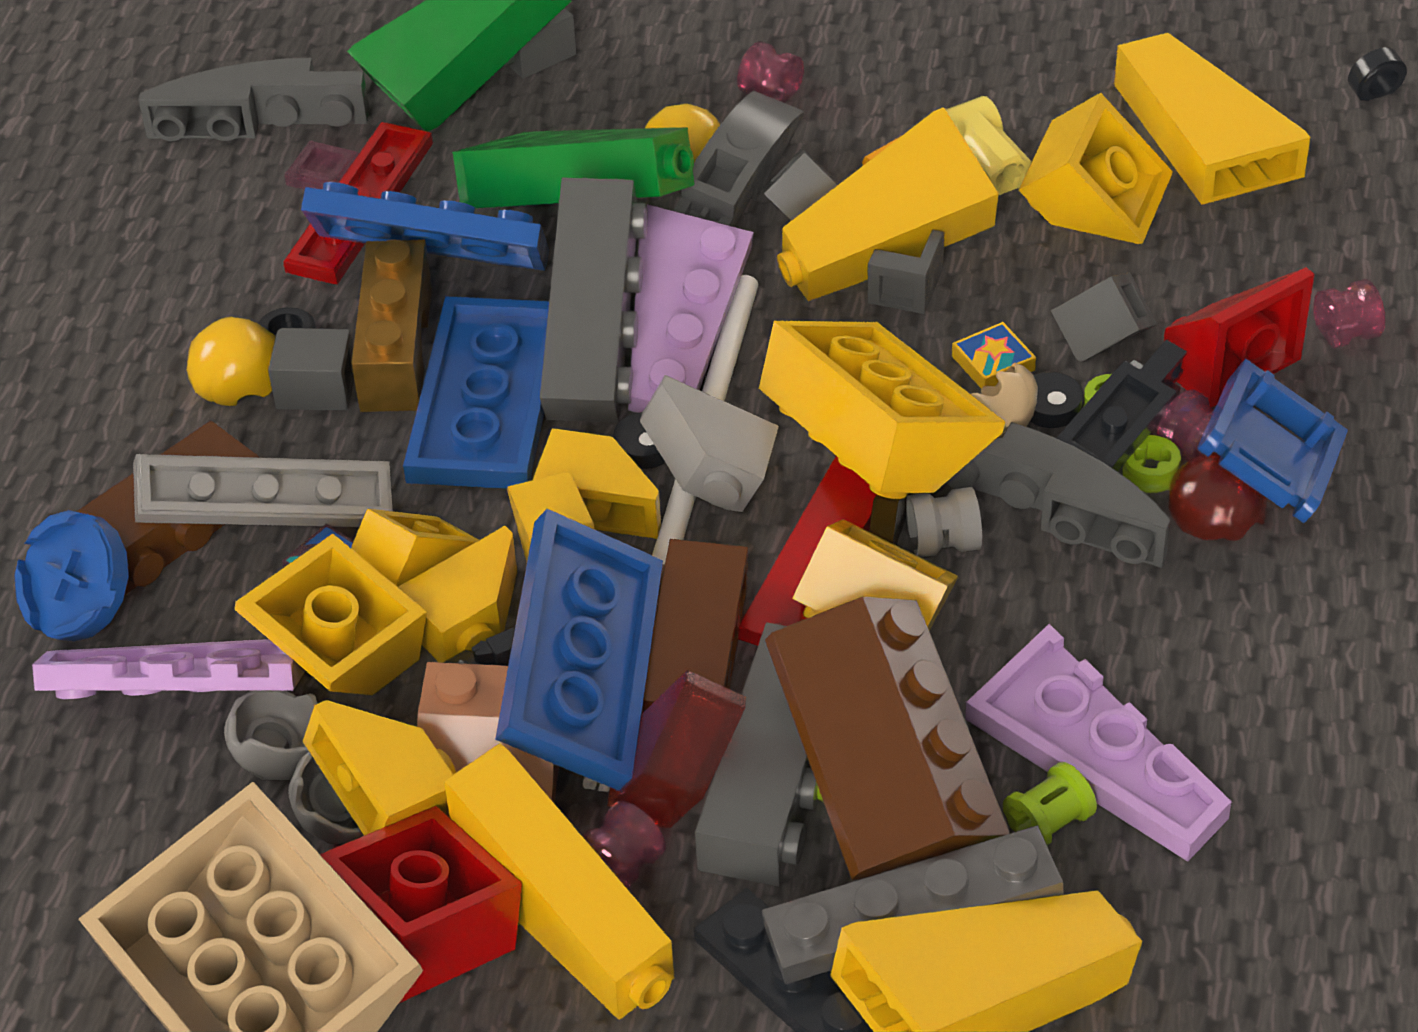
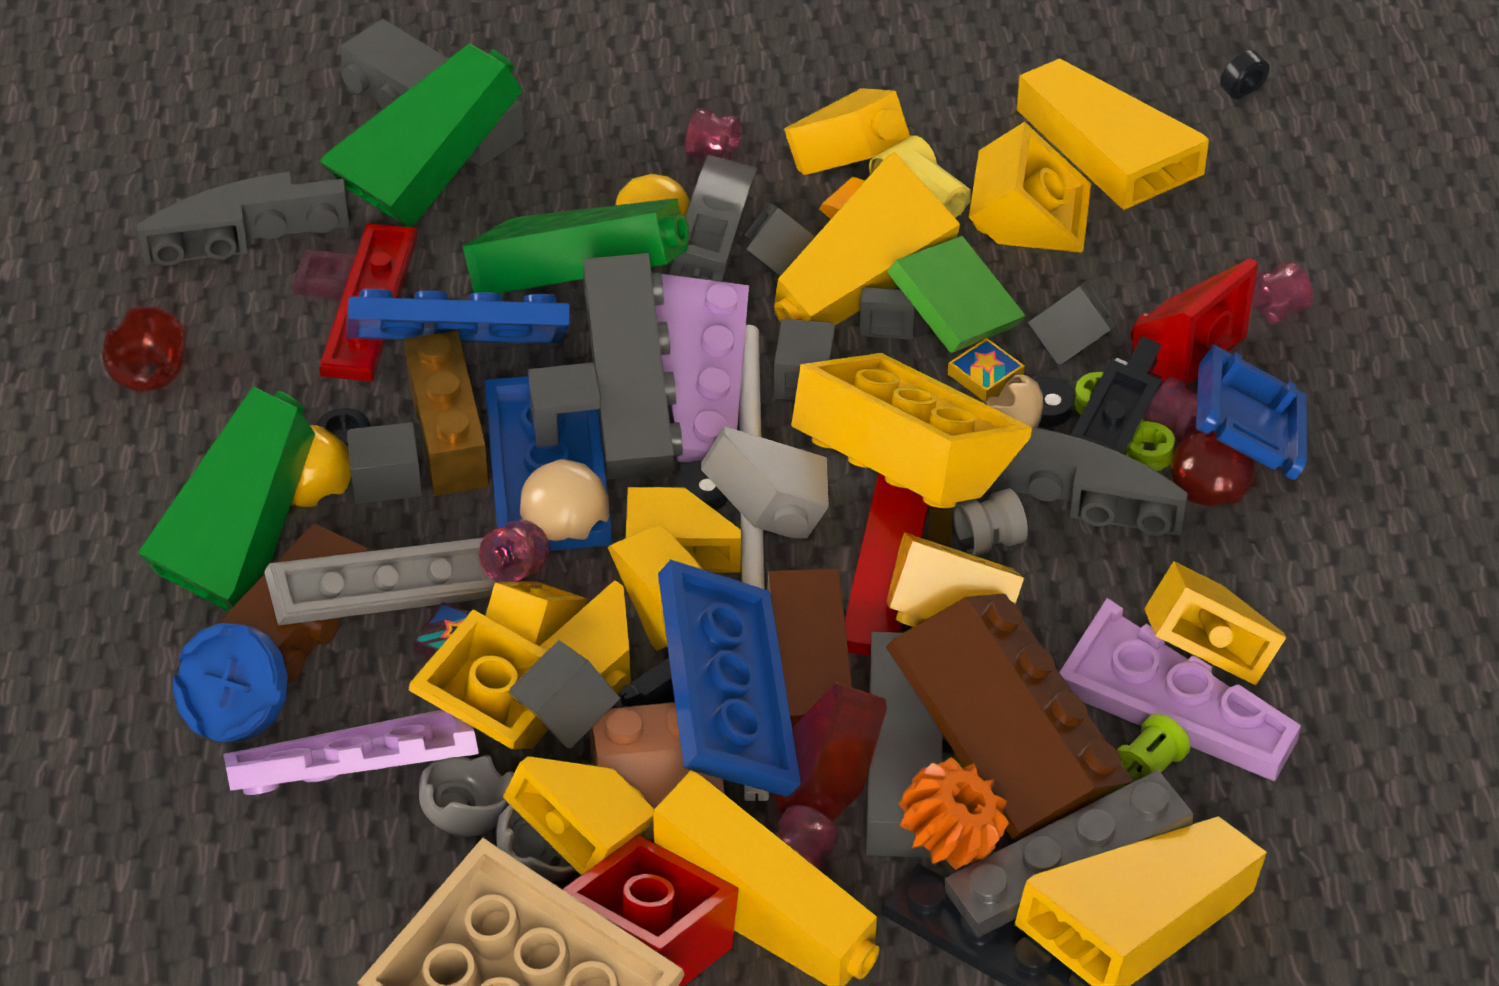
camera: 15 degrees left, 0 degrees up
(107, 212) = (144, 338): none -> clear red hair
(138, 383) = (234, 503): none -> green slope
(398, 640) = (565, 693): none -> dark grey panel
(425, 473) = (526, 544): none -> clear pink wheel
(480, 433) = (564, 500): none -> tan hair
(503, 317) = (560, 391): none -> dark grey panel
(785, 838) = (953, 813): none -> orange gear
(787, 299) = (799, 344): none -> dark grey panel
(913, 84) = (847, 131): none -> yellow slope
(977, 269) = (956, 293): none -> bright green tile
(1160, 671) = (1212, 624): none -> yellow slope

